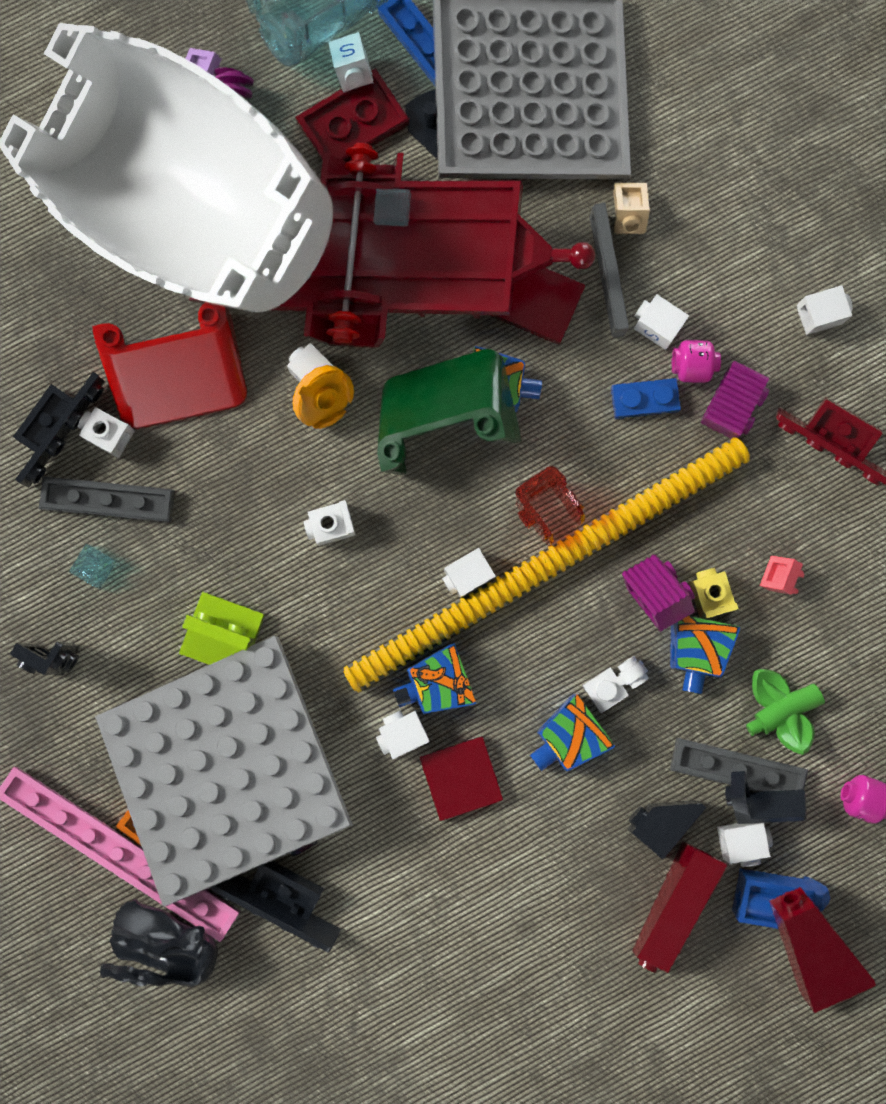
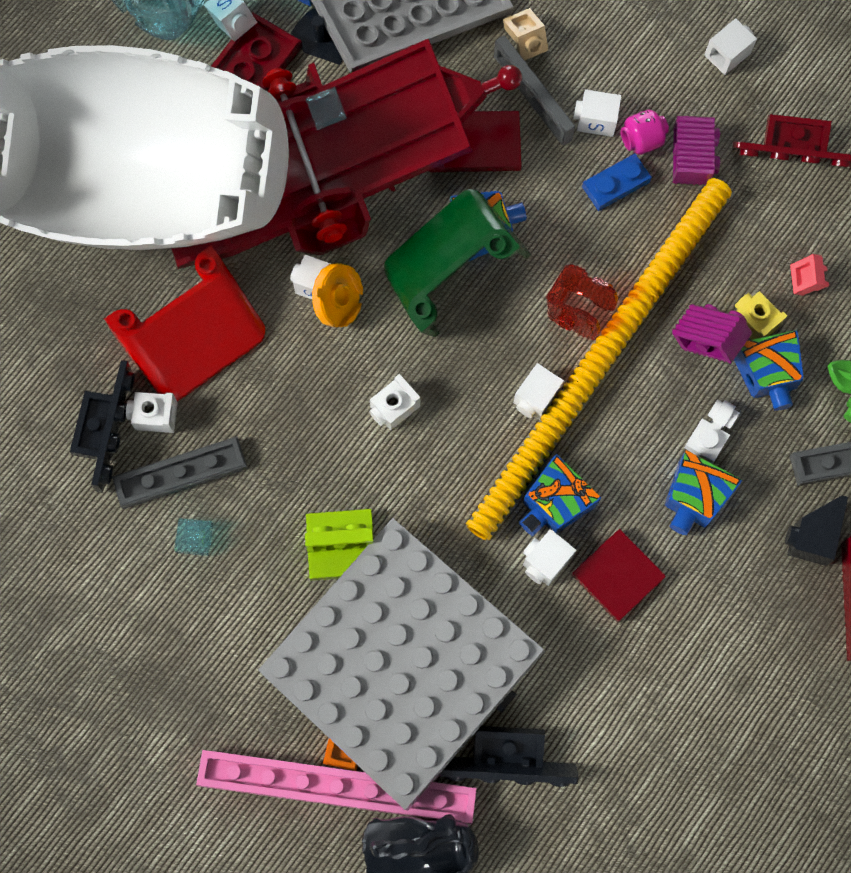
camera: 20 degrees left, 10 degrees down
(37, 659) = (187, 637): black bracket -> none

